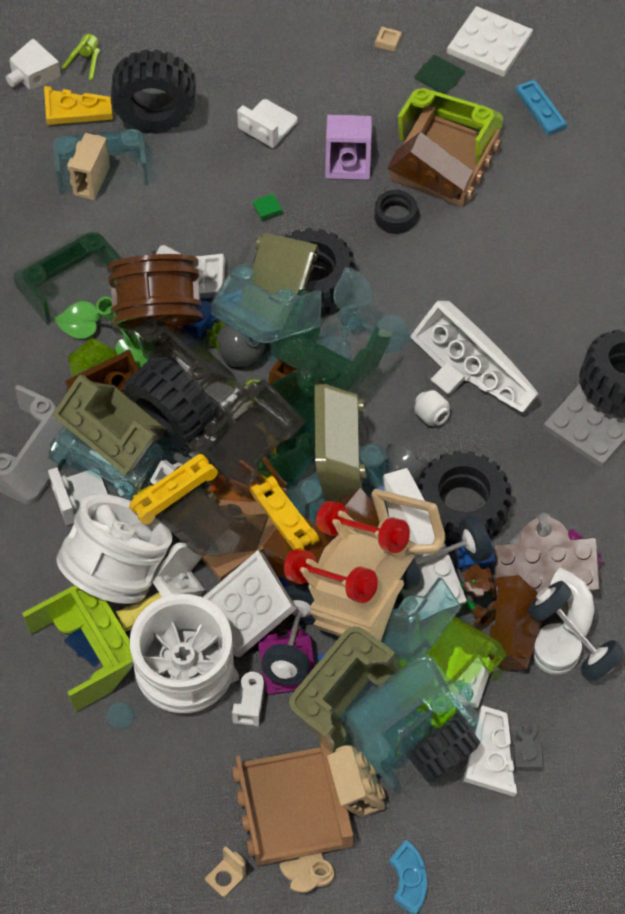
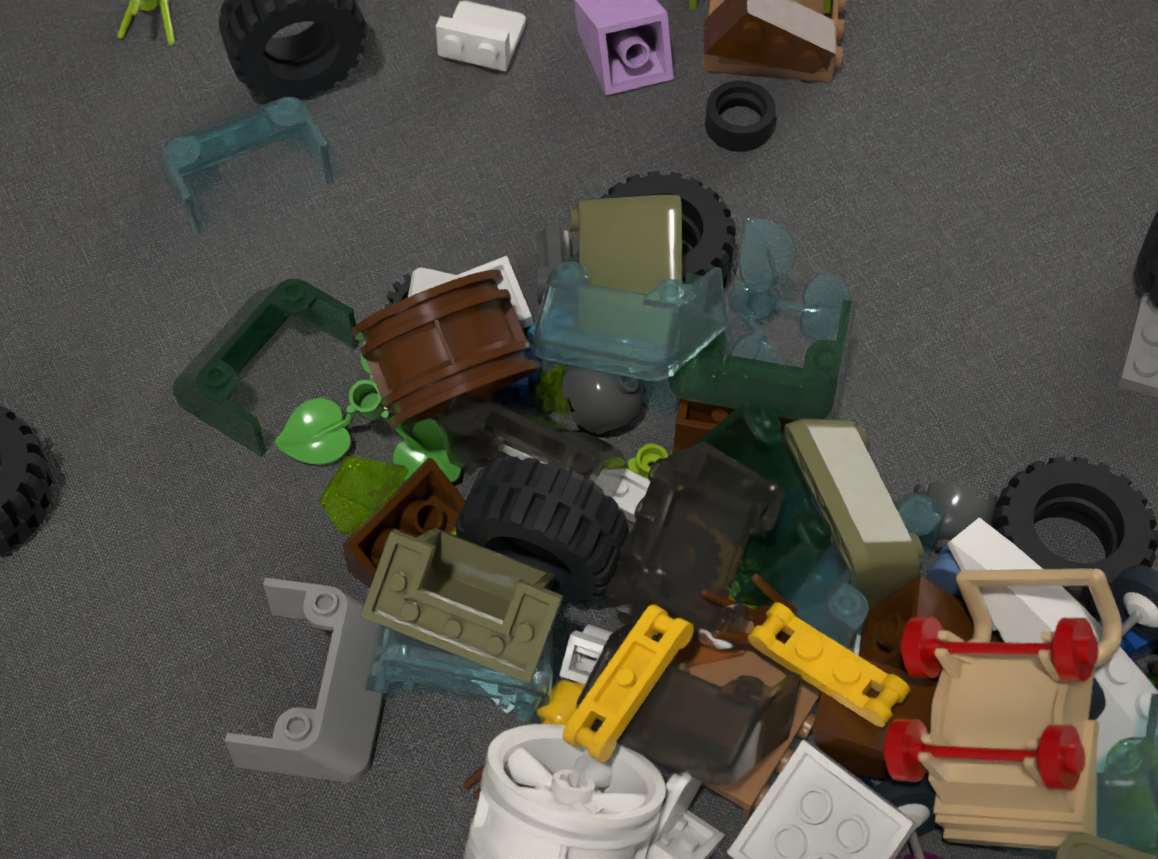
camera: 20 degrees left, 0 degrees up
(33, 66) = (72, 46): white torso -> none
(72, 108) = (159, 95): yellow wing -> none
(73, 489) = (440, 737): white bracket -> none
(89, 166) = (231, 176): tan brick -> none
(267, 207) = (538, 164): green tile -> none
(432, 408) = (945, 405): white head -> none
(447, 379) = (943, 351): white tile -> none
(456, 340) = (966, 305): white wedge -> none

